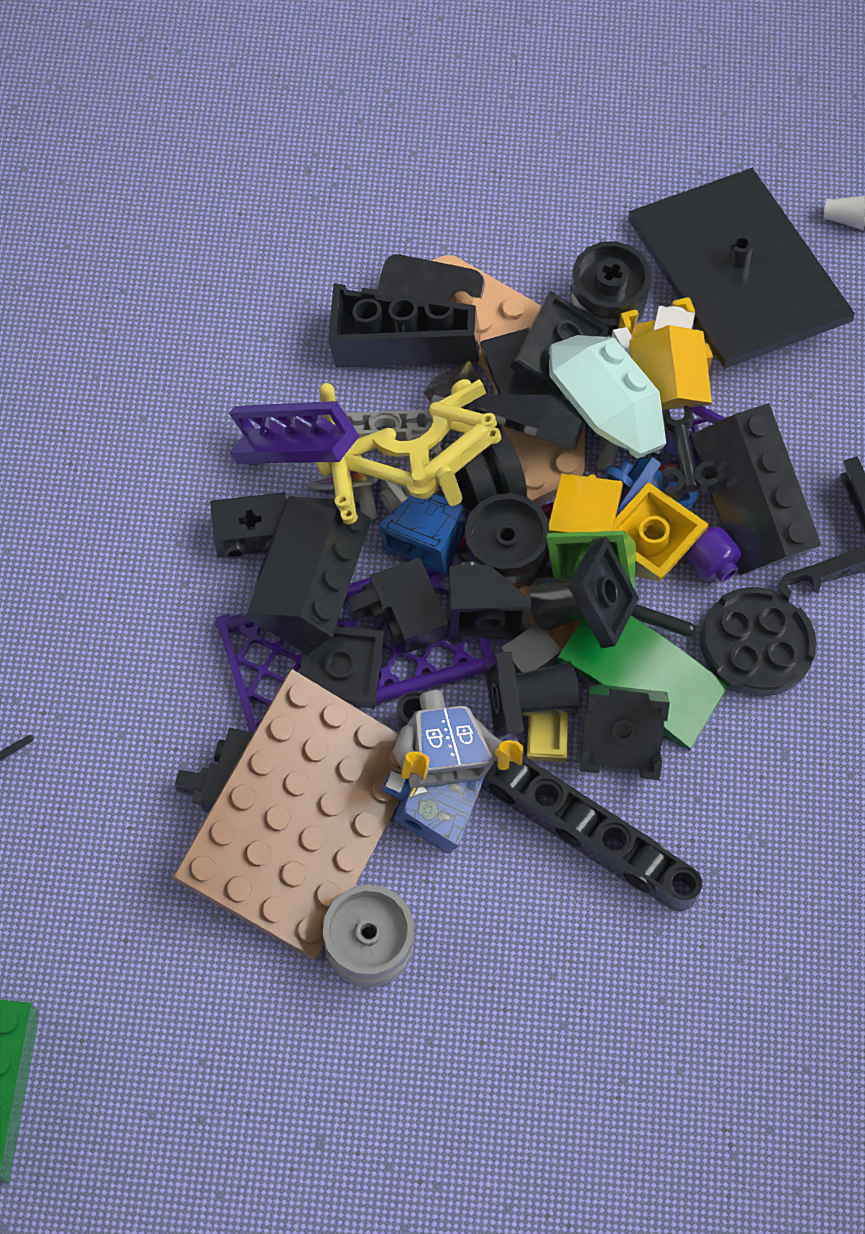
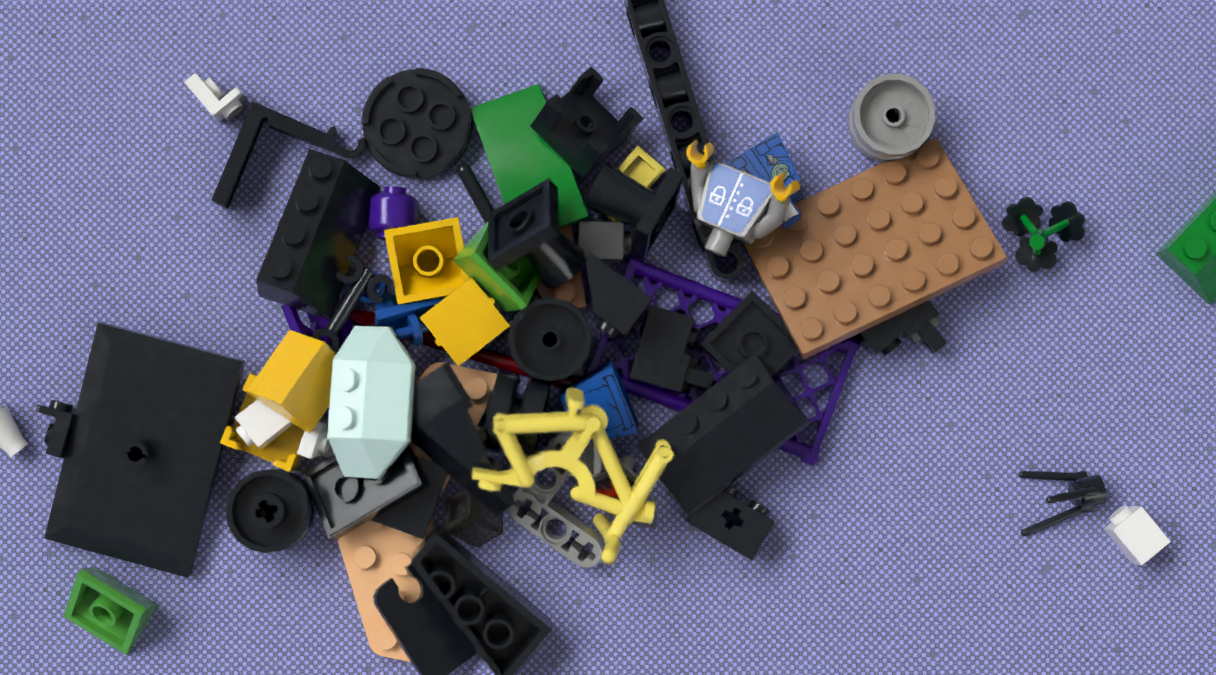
camera: 145 degrees left, 20 degrees up
(150, 930) = (1038, 250): none -> black plant
(297, 440) = (652, 556): dark purple fence -> none
(665, 159) = (108, 608): none -> bright green slope
(823, 246) = (59, 431): none -> black bracket

